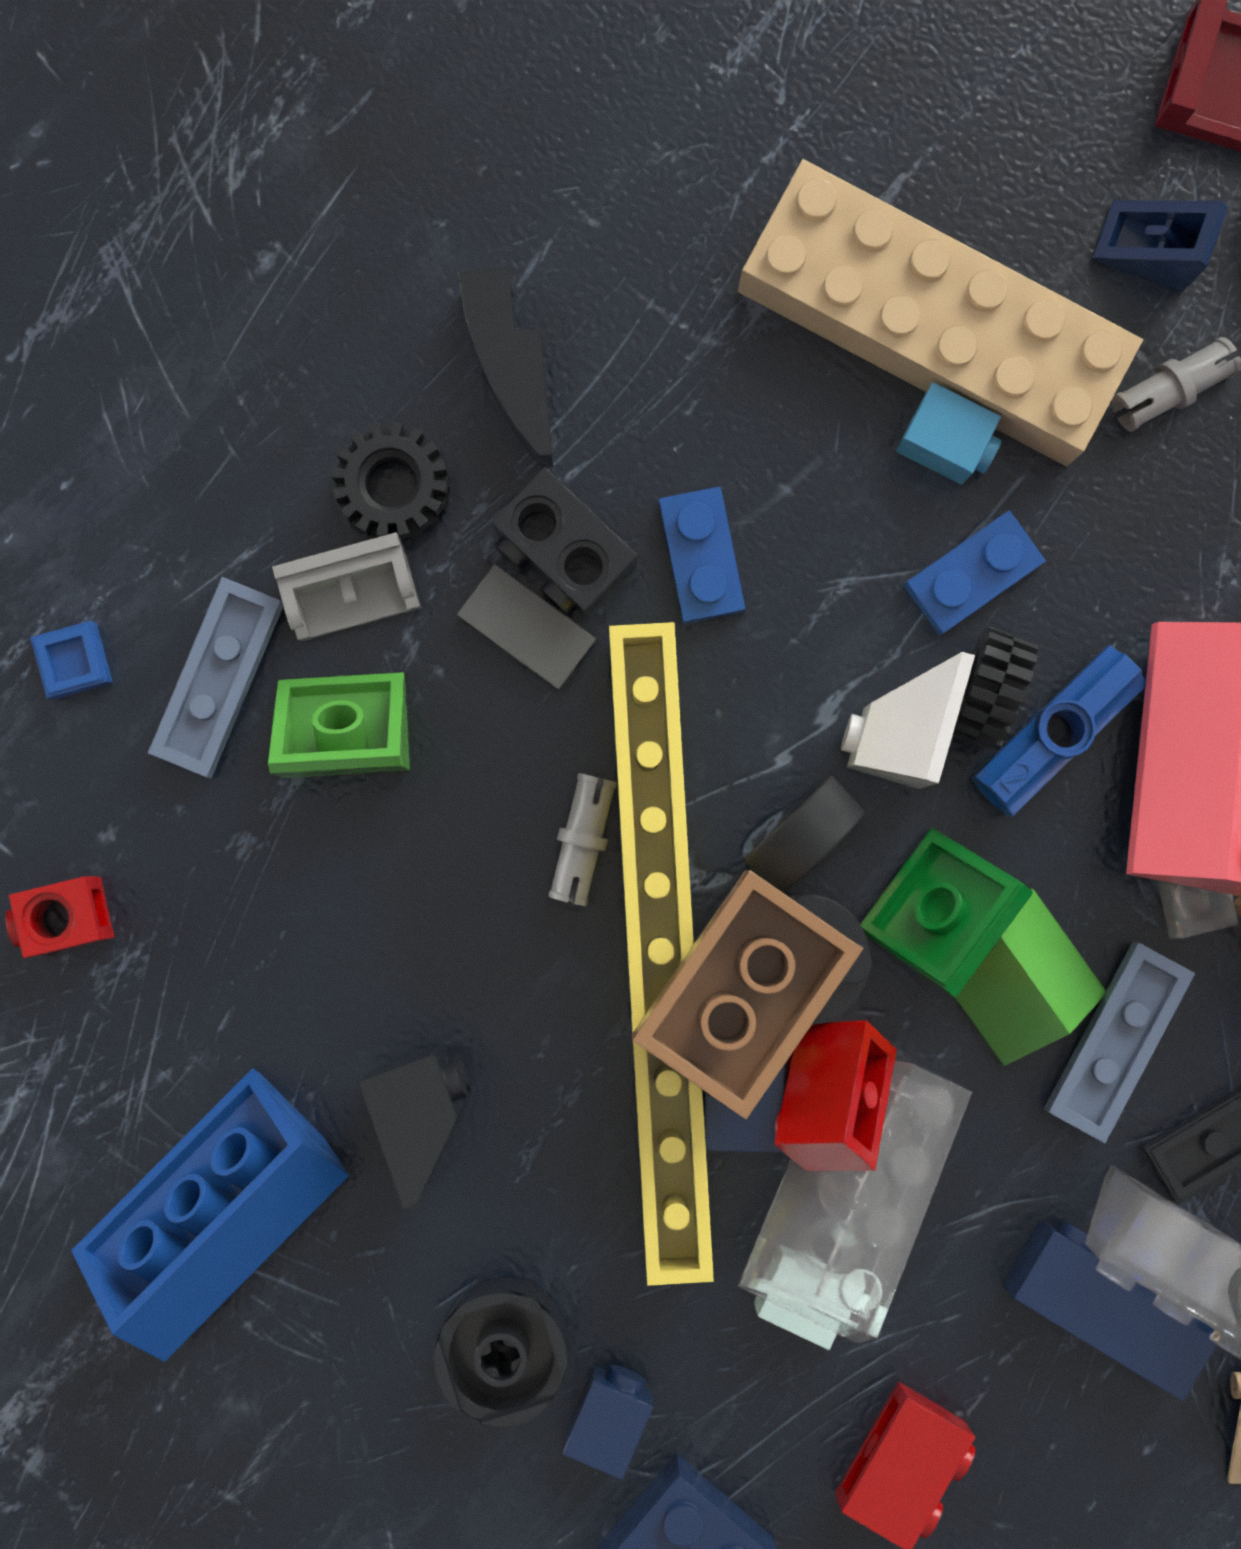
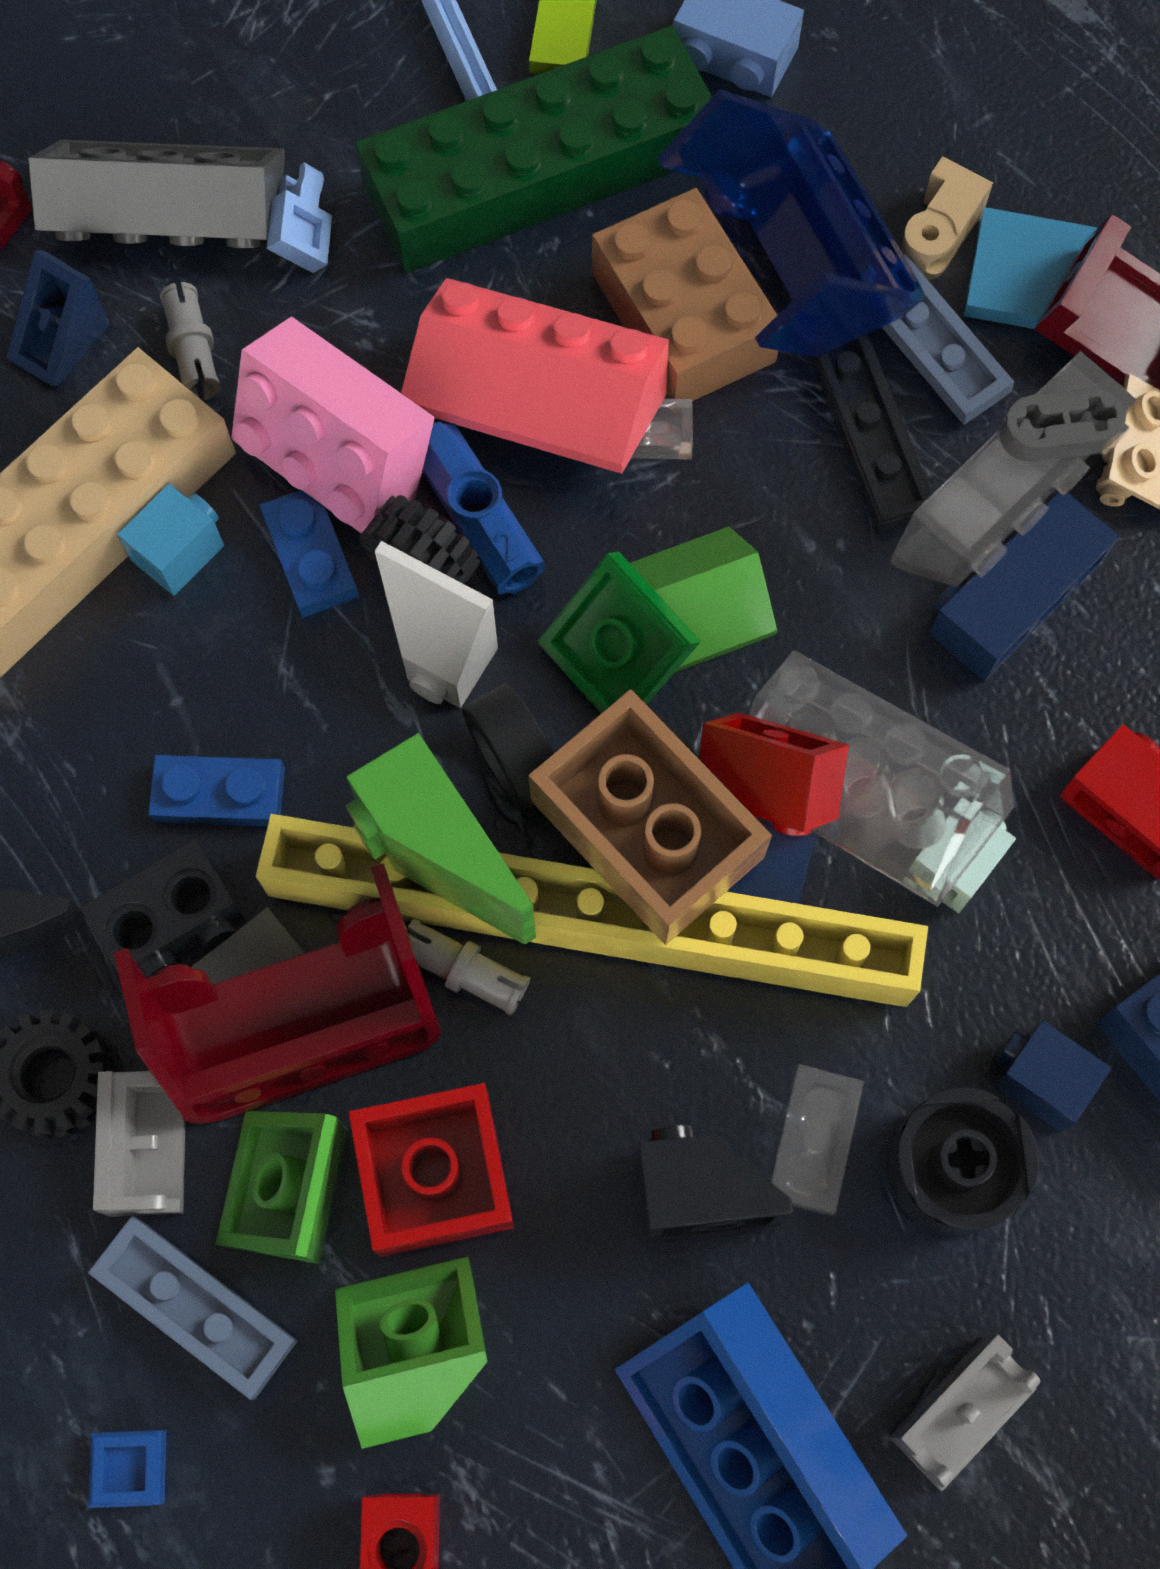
camera: 70 degrees left, 15 degrees down
(225, 881) = (408, 1348): none -> bright green slope
(287, 1390) = (965, 1410): none -> light grey hinge
(379, 862) = (430, 1170): none -> red brick
(485, 687) = (286, 1023): none -> dark red windscreen
(496, 1209) = (816, 1138): none -> clear plate
(681, 779) = (430, 836): none -> bright green slope
(1103, 561) = (328, 423): none -> bright pink brick
(1119, 1041) = (777, 524): sand blue plate -> none

